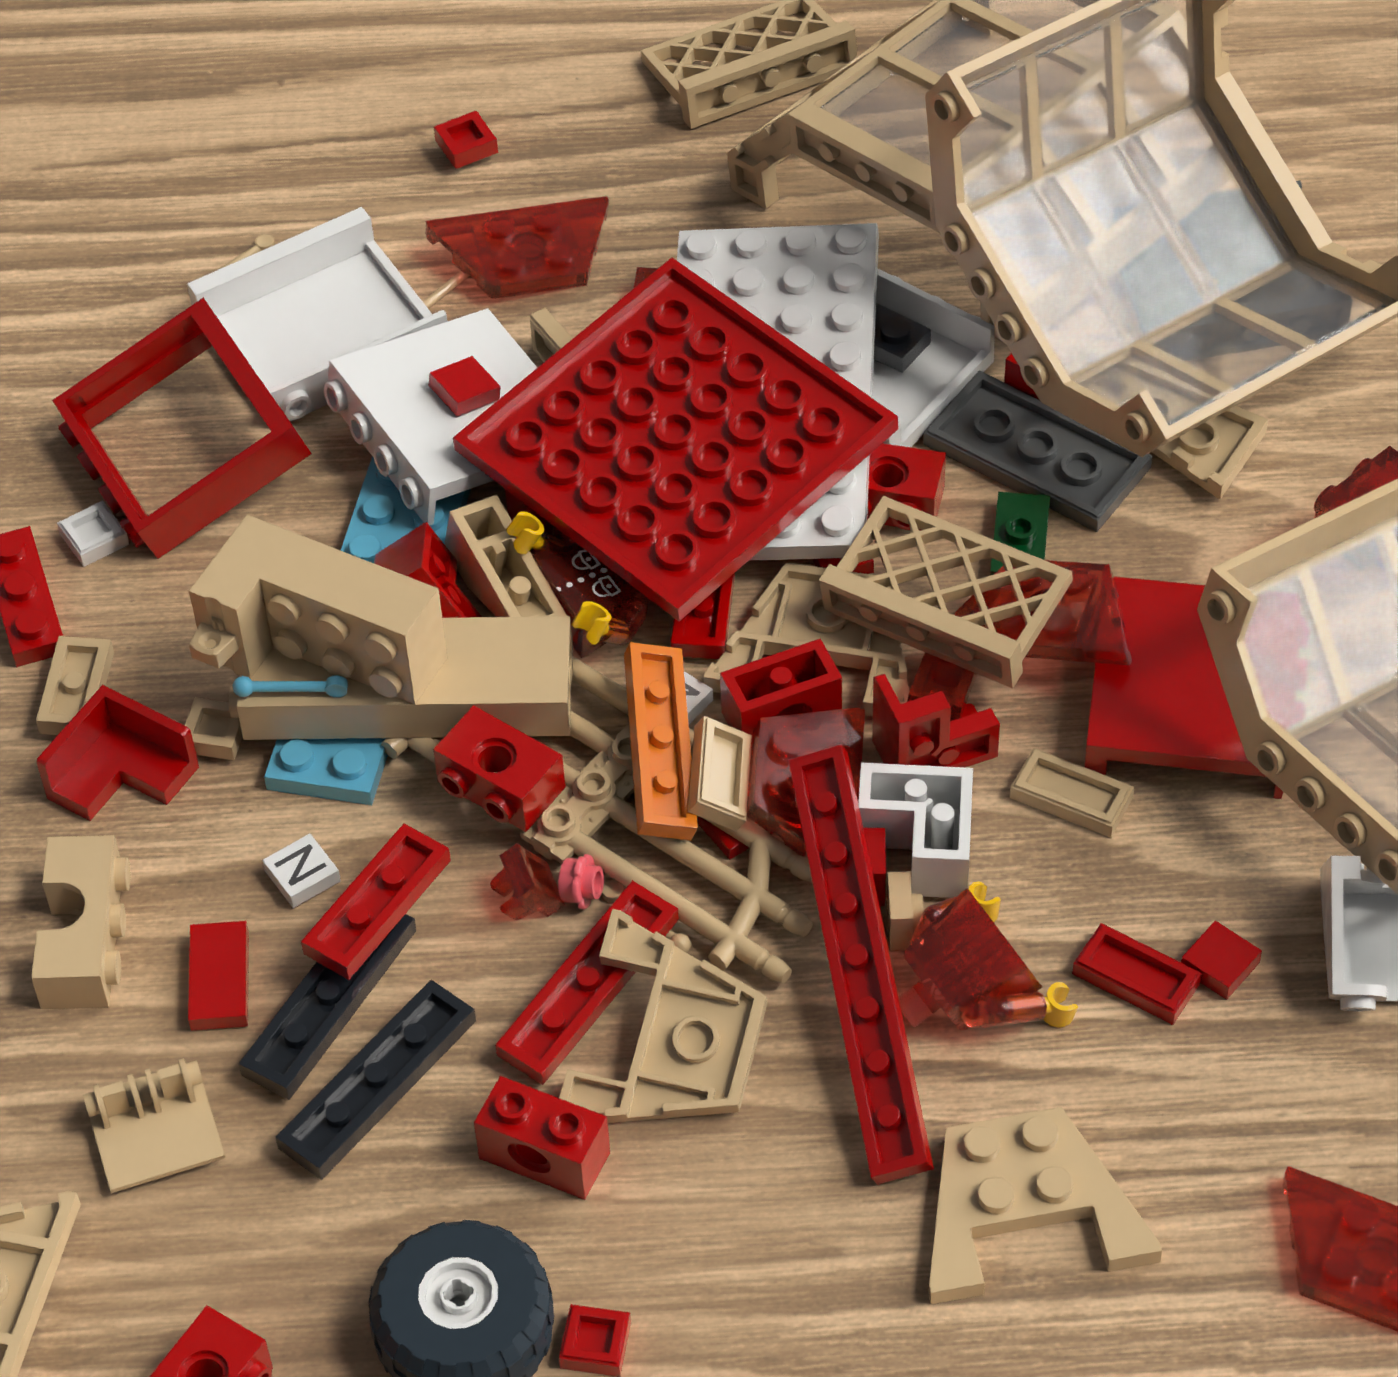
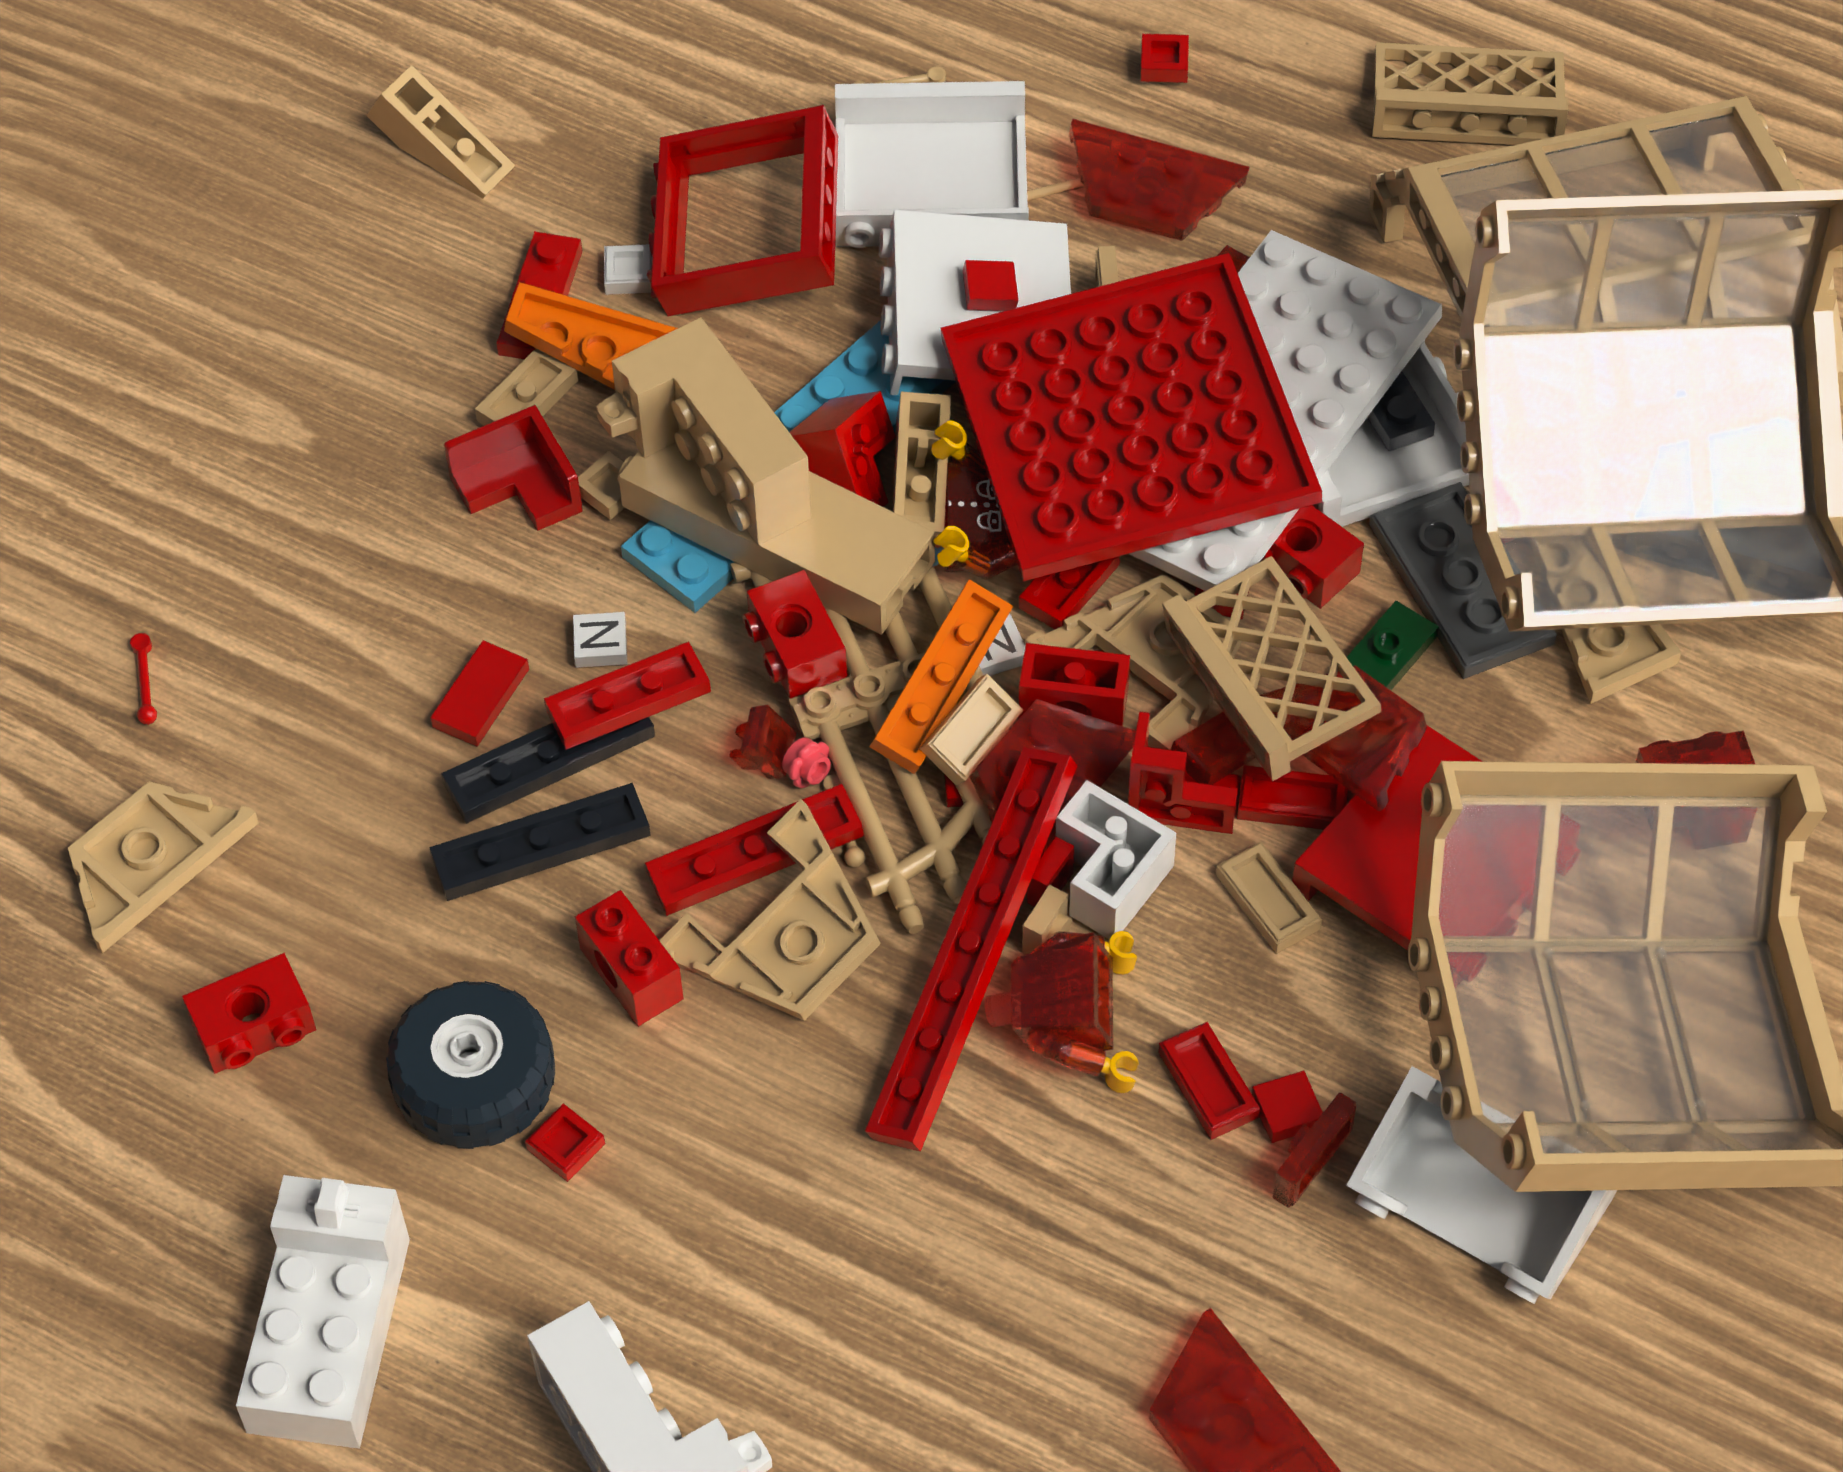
camera: 30 degrees right, 5 degrees up
(80, 961) = (382, 627): tan arch -> none
(112, 604) = (578, 331): none -> orange wing
(153, 1125) = (350, 788): tan hinge -> none
(334, 686) = (702, 497): medium azure hinge -> none
(1022, 1177) = (984, 1195): tan wing -> none
(1036, 698) = (1290, 800): none -> red tile
(1274, 982) = (1312, 1149): none -> clear red plate

